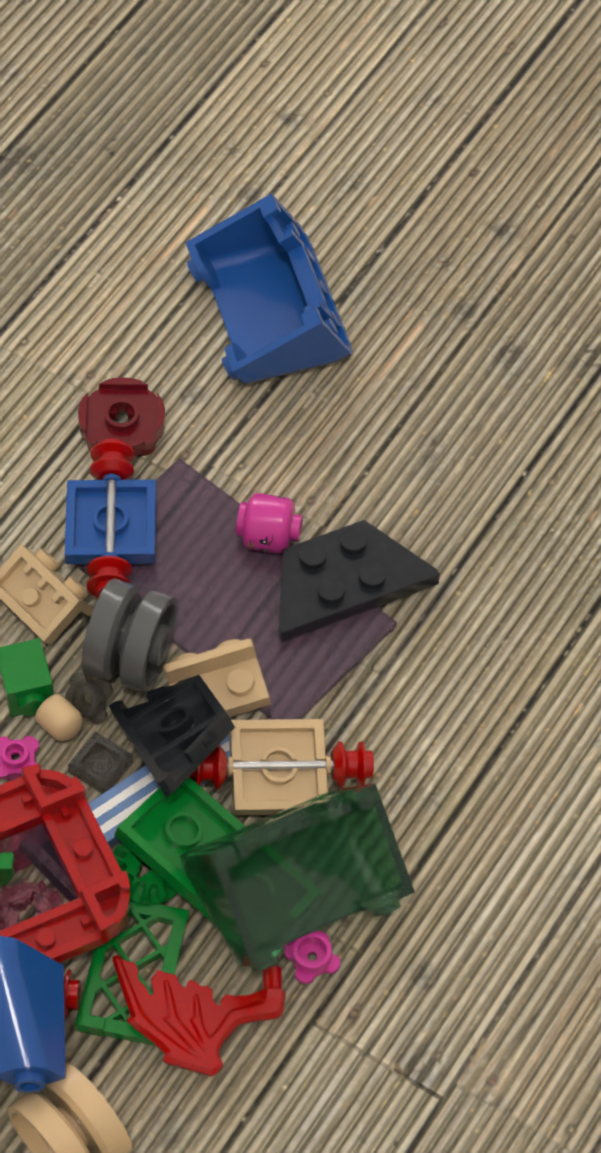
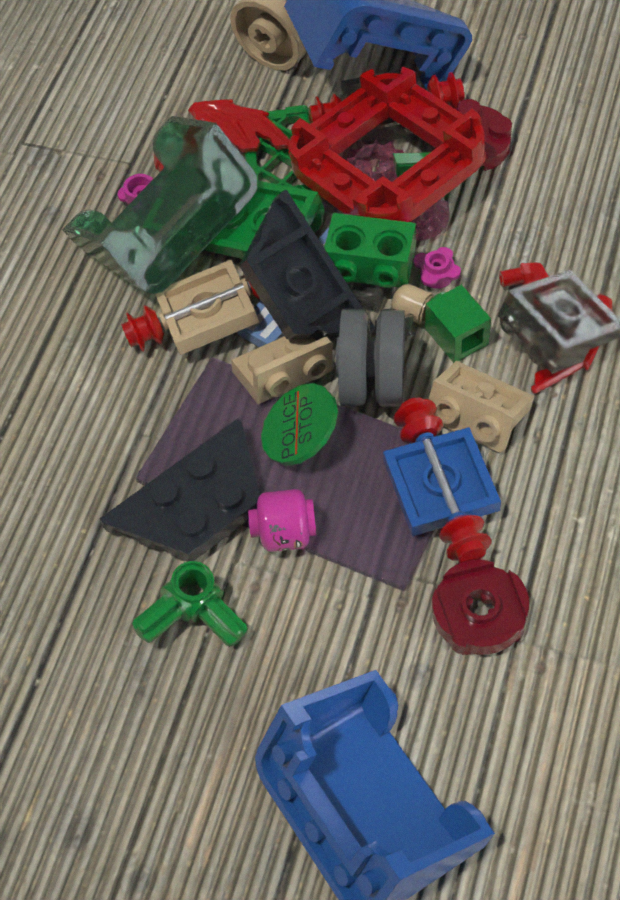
camera: 170 degrees right, 0 degrees up
(90, 756) = (372, 249): none -> green brick
(223, 601) = (299, 424): none -> green piece
(373, 485) = (178, 605): none -> green axle

